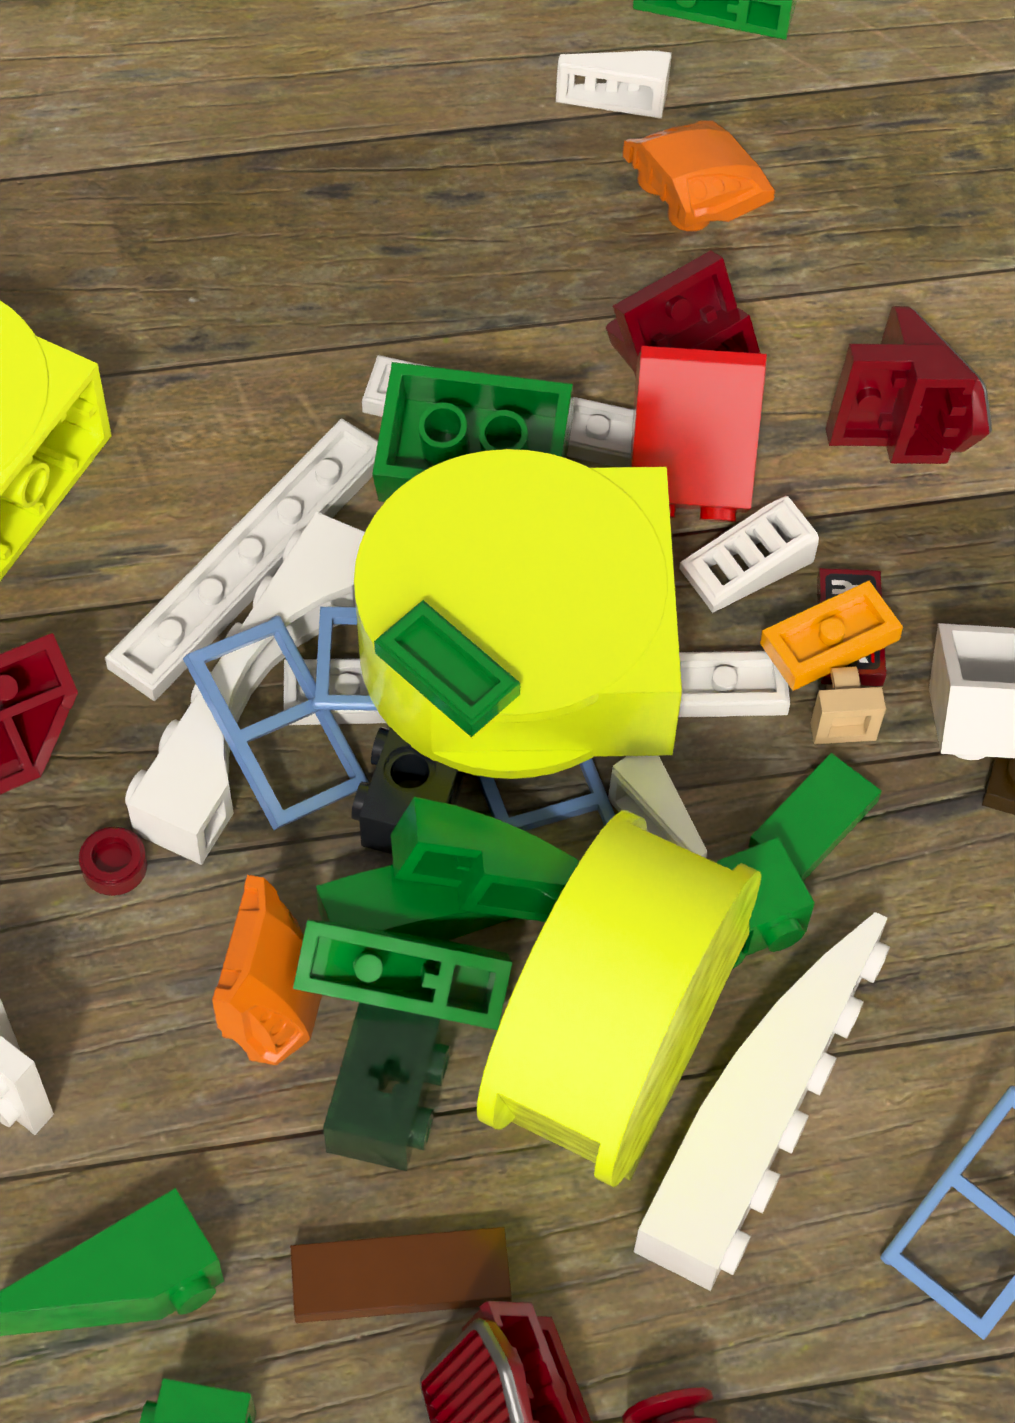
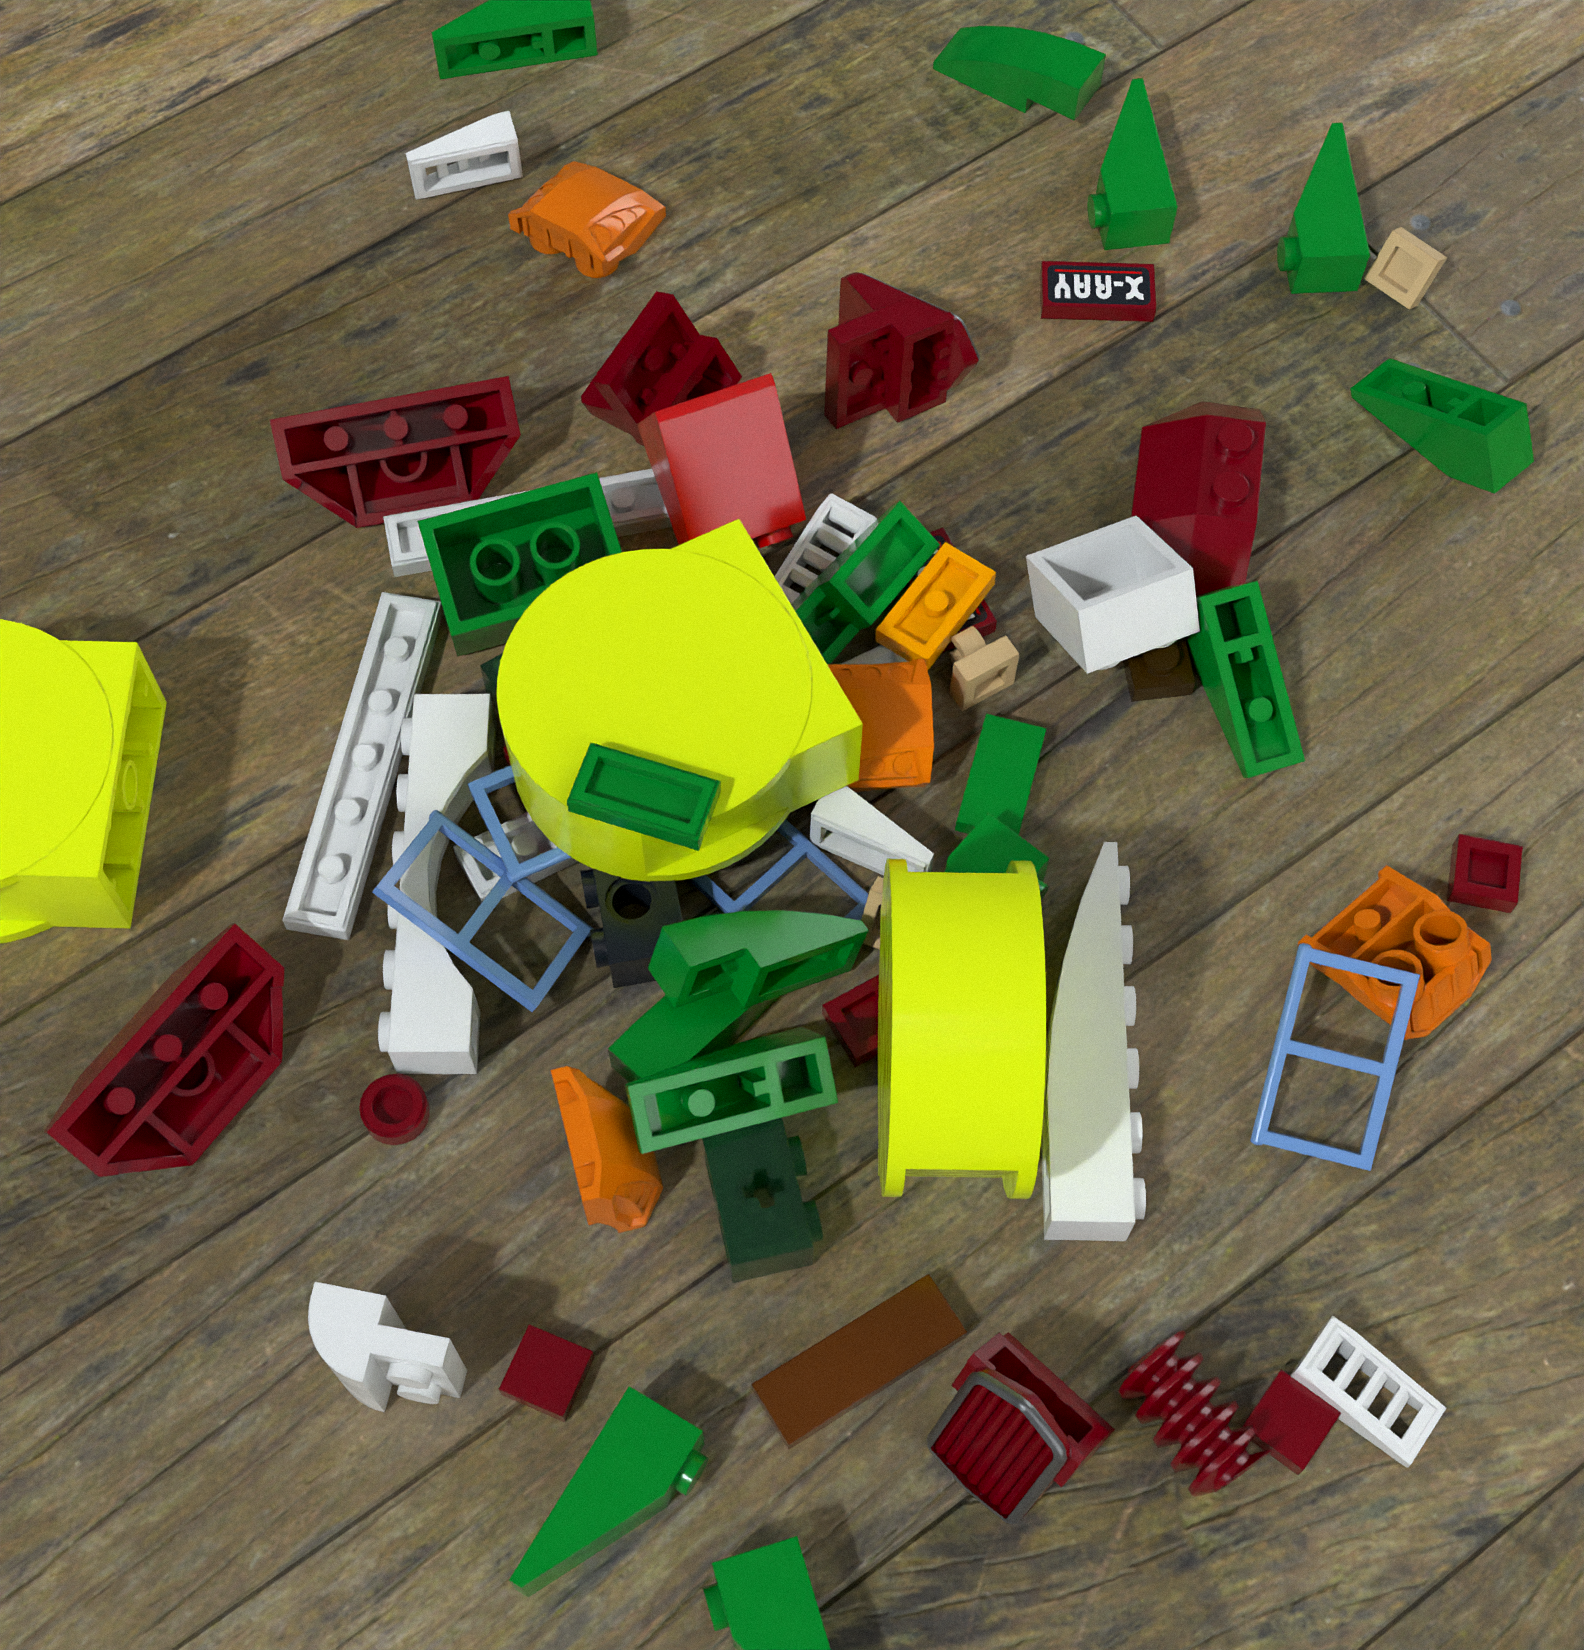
camera: 25 degrees left, 5 degrees up
(118, 1149) = (546, 1373): none -> dark red tile
(418, 301) = (399, 450): none -> dark red wedge
(721, 714) = (896, 721): none -> orange slope
(765, 588) = (864, 580): none -> green slope

